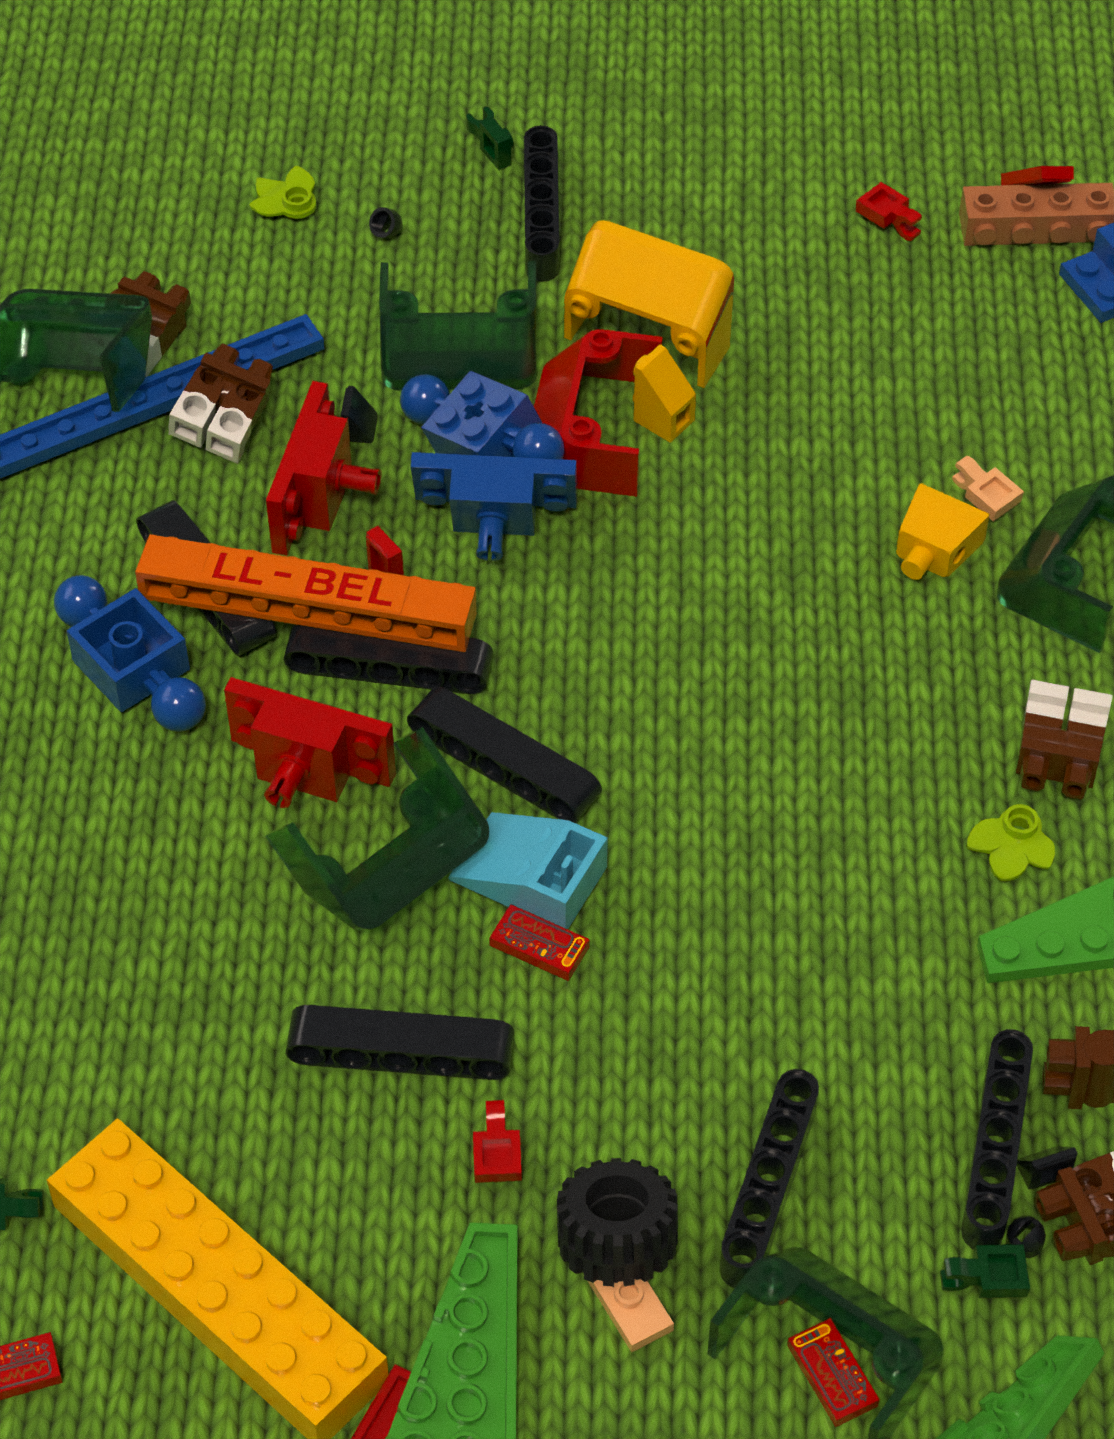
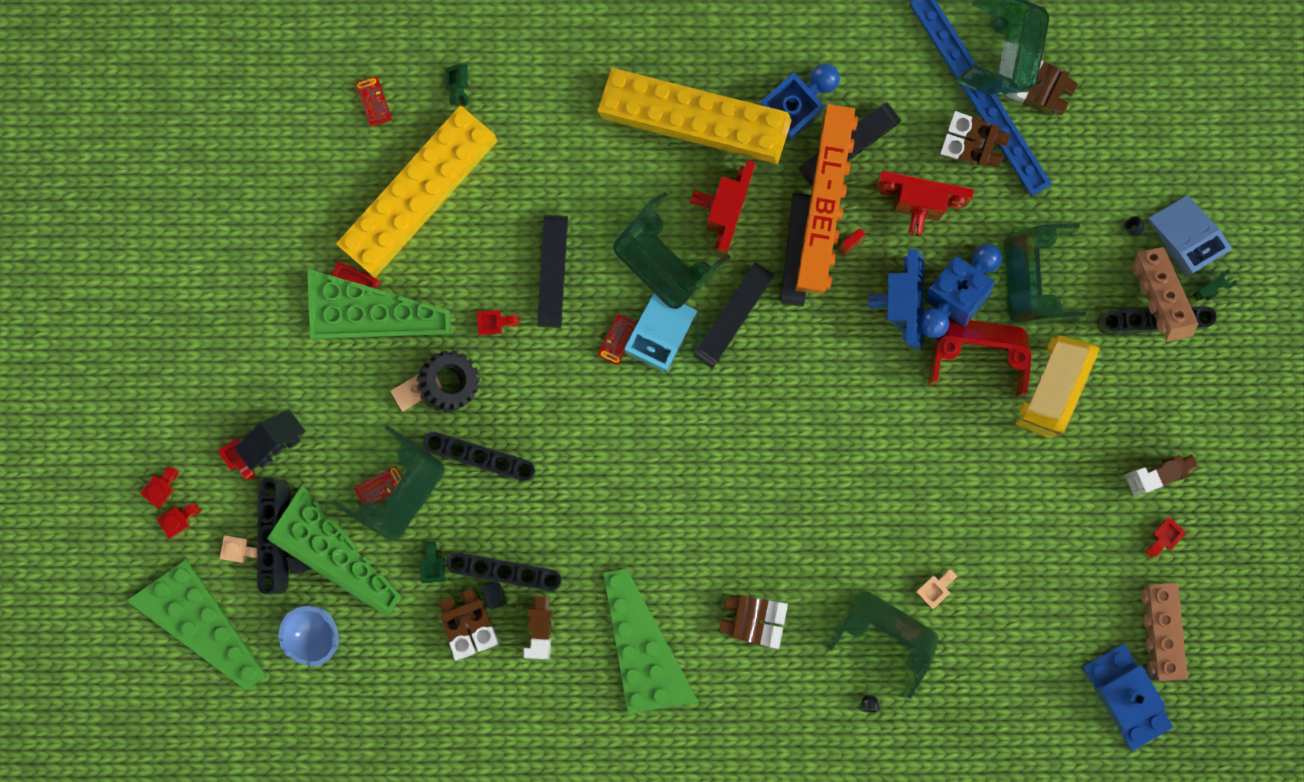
camera: 85 degrees right, 30 degrees up
(124, 785) = (694, 115): none -> yellow brick
(286, 197) = (1159, 161): lime plate -> none
(360, 415) = (974, 221): black slope -> none
(410, 155) = (1189, 235): none -> medium blue slope
(503, 174) = (1164, 294): none -> nougat brick
(662, 395) = (992, 396): yellow slope -> none
(792, 201) = (1161, 474): none -> hips
(939, 533) = (899, 556): yellow torso -> none
(1010, 847) = (684, 590): lime plate -> none
(1033, 1242) = (458, 580): black hinge -> none
(1039, 175) = (1190, 631): red tile -> none

